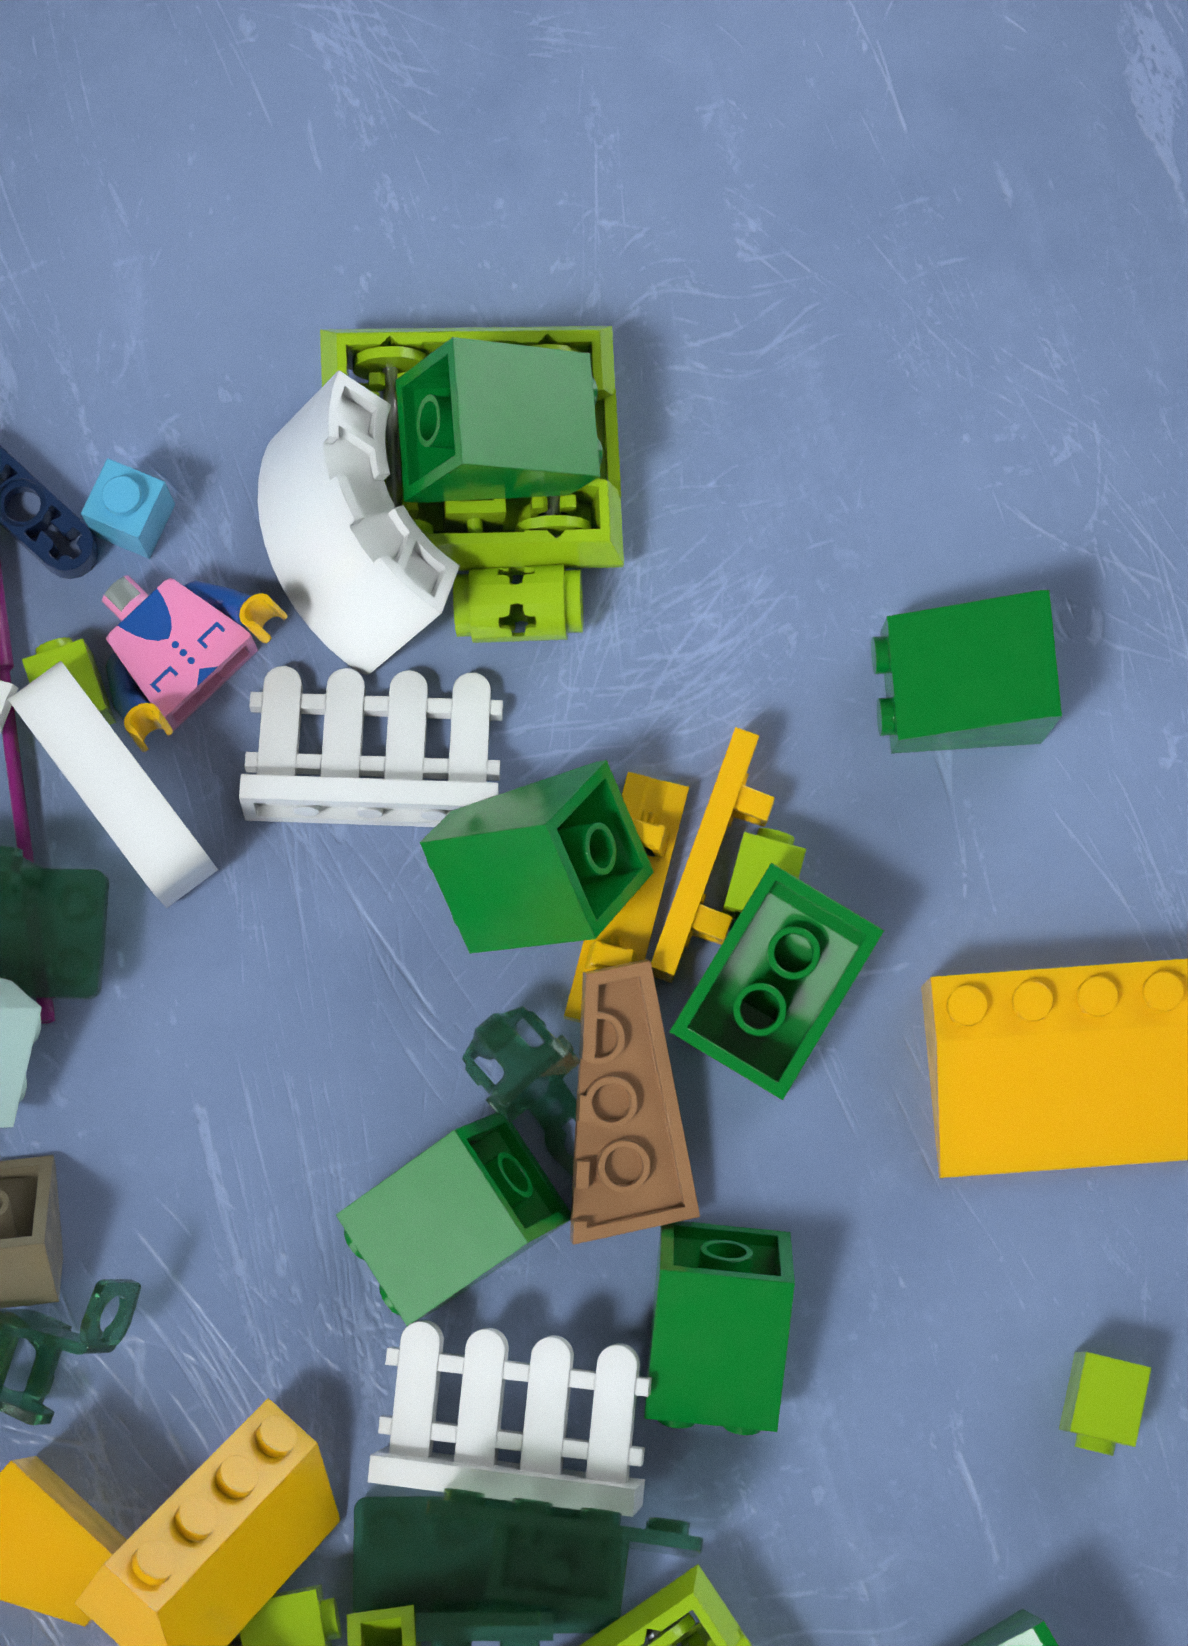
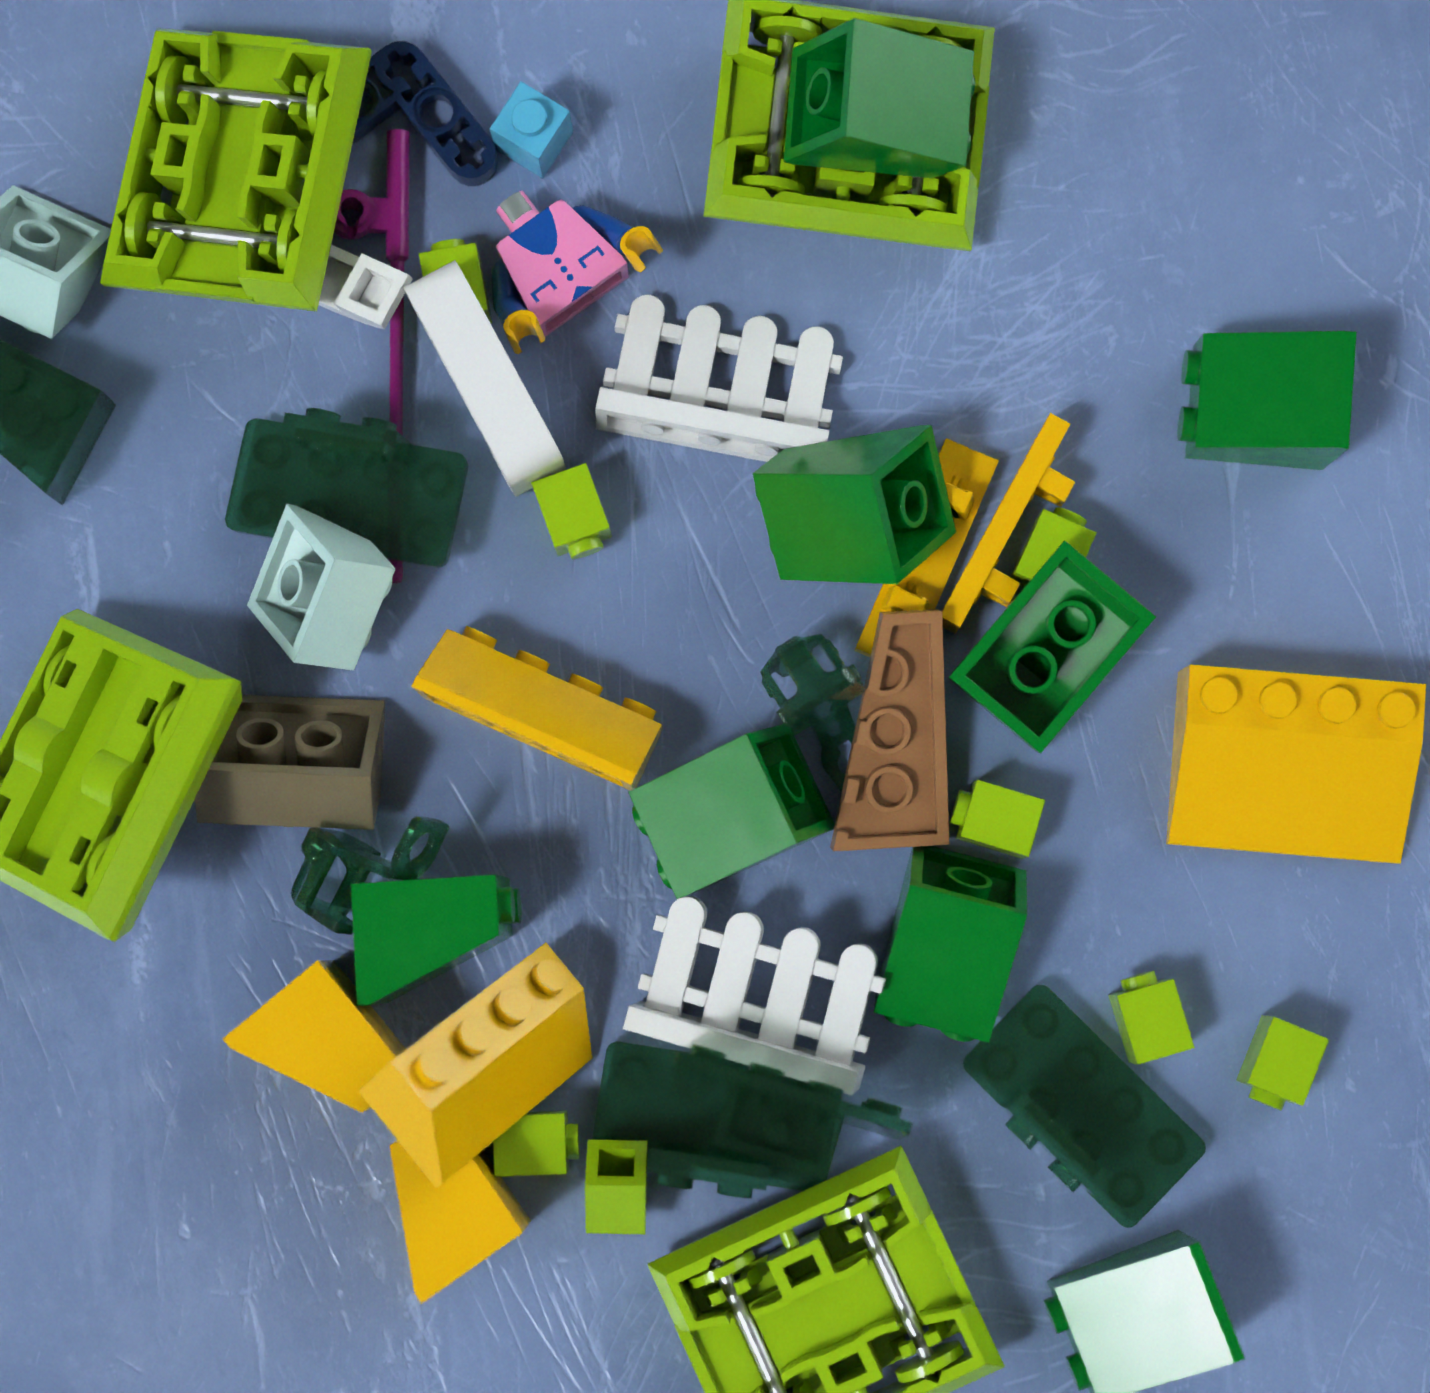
camera: 10 degrees right, 5 degrees up
(130, 1404) = (425, 928): none -> green slope
(224, 1136) = (538, 708): none -> yellow slope
(231, 915) = (572, 512): none -> lime brick
(333, 533) = (716, 181): white panel -> none
(490, 605) = (844, 264): lime piece -> none
(748, 1179) = (997, 818): none -> lime brick
(894, 1487) = (1083, 1107): none -> clear green bracket
(952, 1375) = (1150, 1018): none -> lime brick

